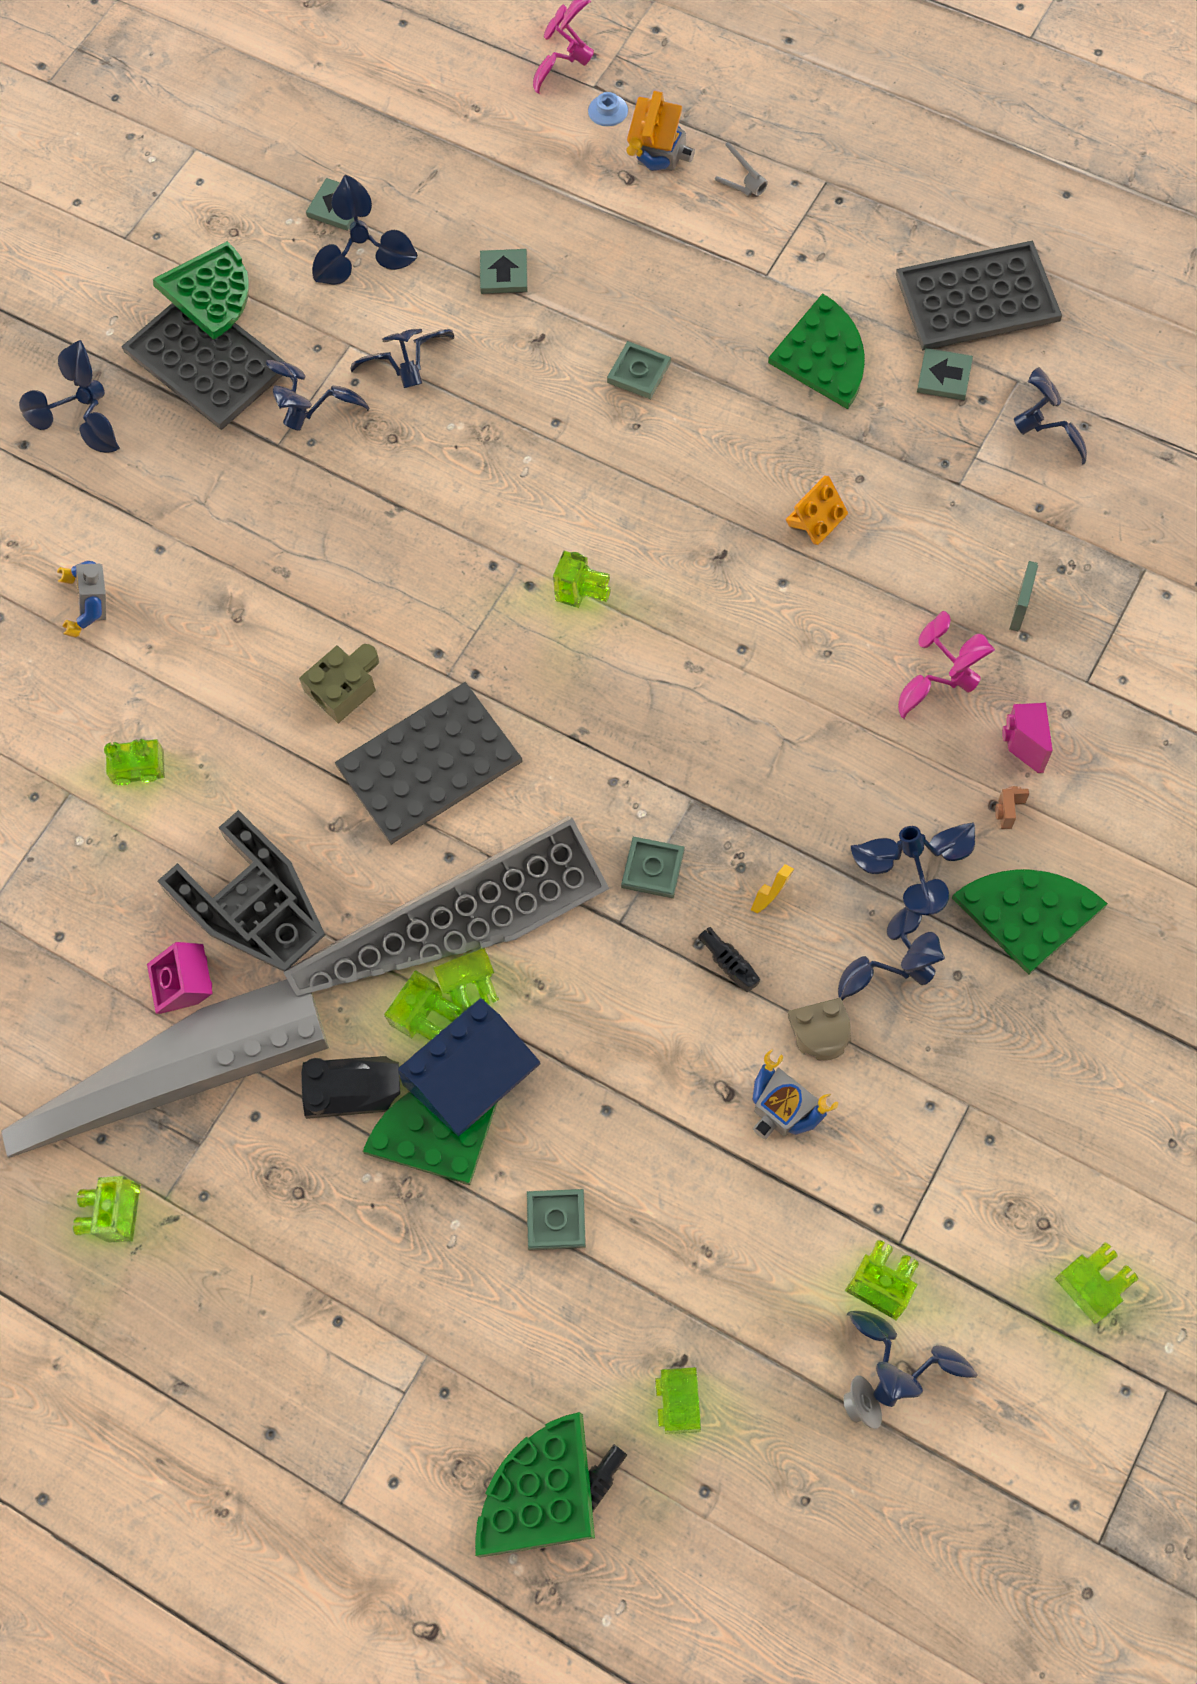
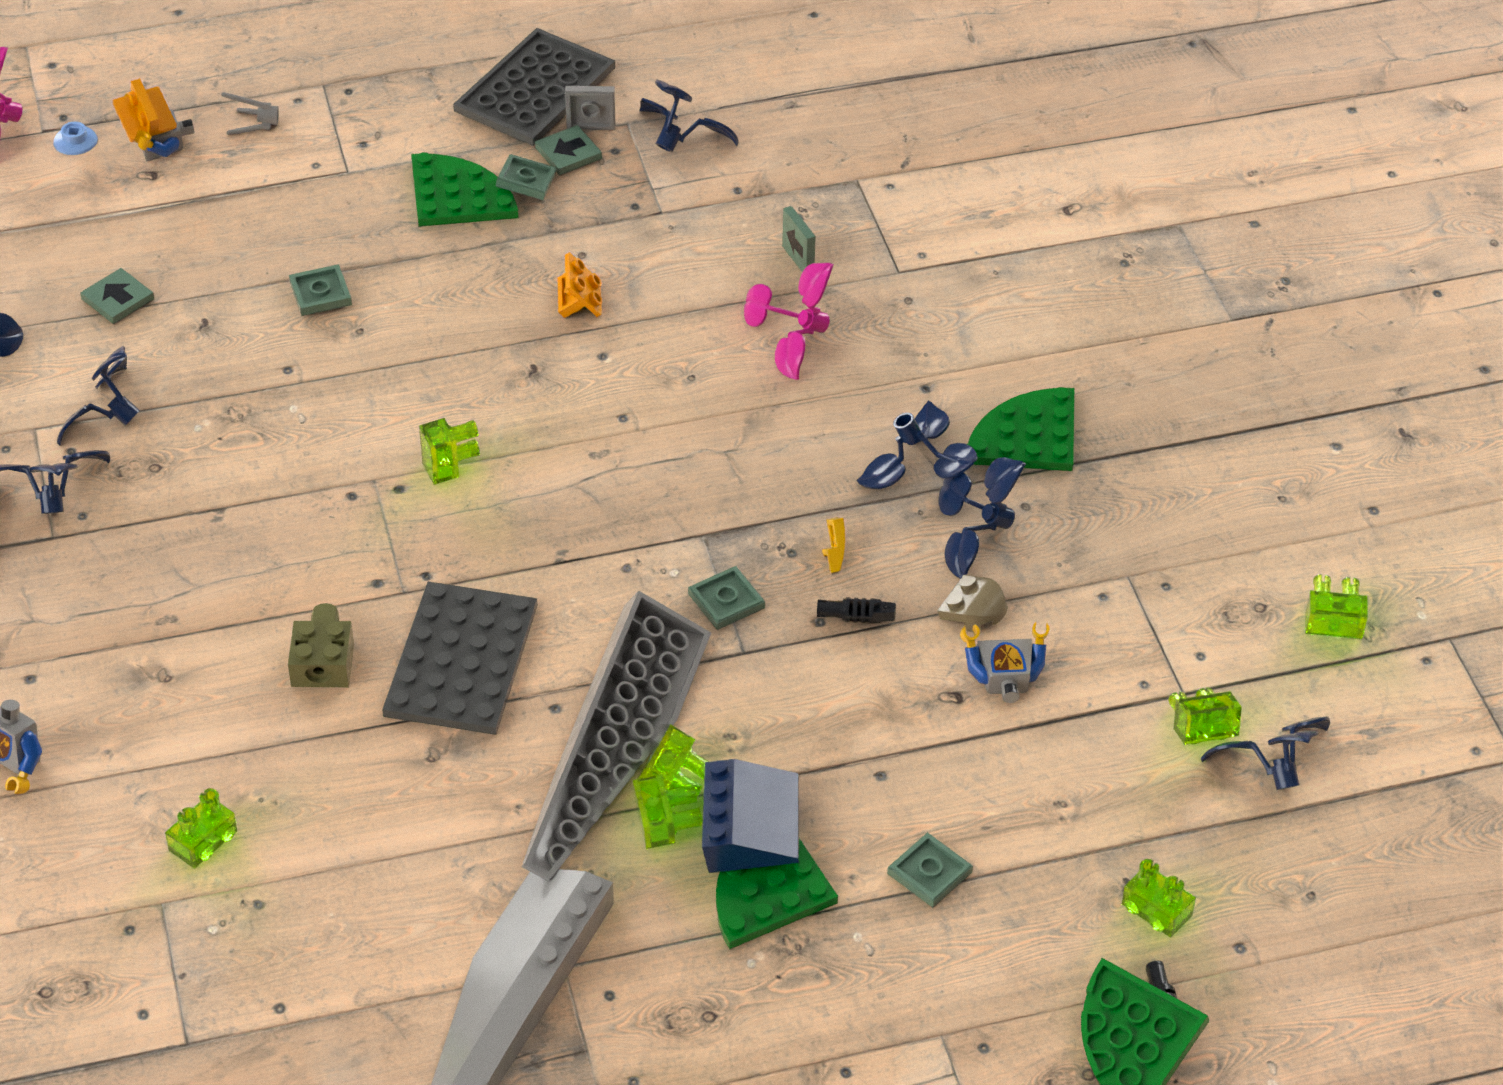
camera: 50 degrees left, 20 degrees down
(179, 977) = (430, 947): dark pink slope -> none
(259, 910) = (445, 840): dark grey wedge -> none
(349, 1086) = (665, 910): black slope -> none
(862, 1404) = (1278, 799): light grey piece -> none
(884, 377) = (526, 177): none -> sand green tile
(991, 348) = (590, 107): none -> light grey tile
(1006, 808) = (938, 377): nougat bracket -> none
(1029, 734) = (906, 320): dark pink slope -> none

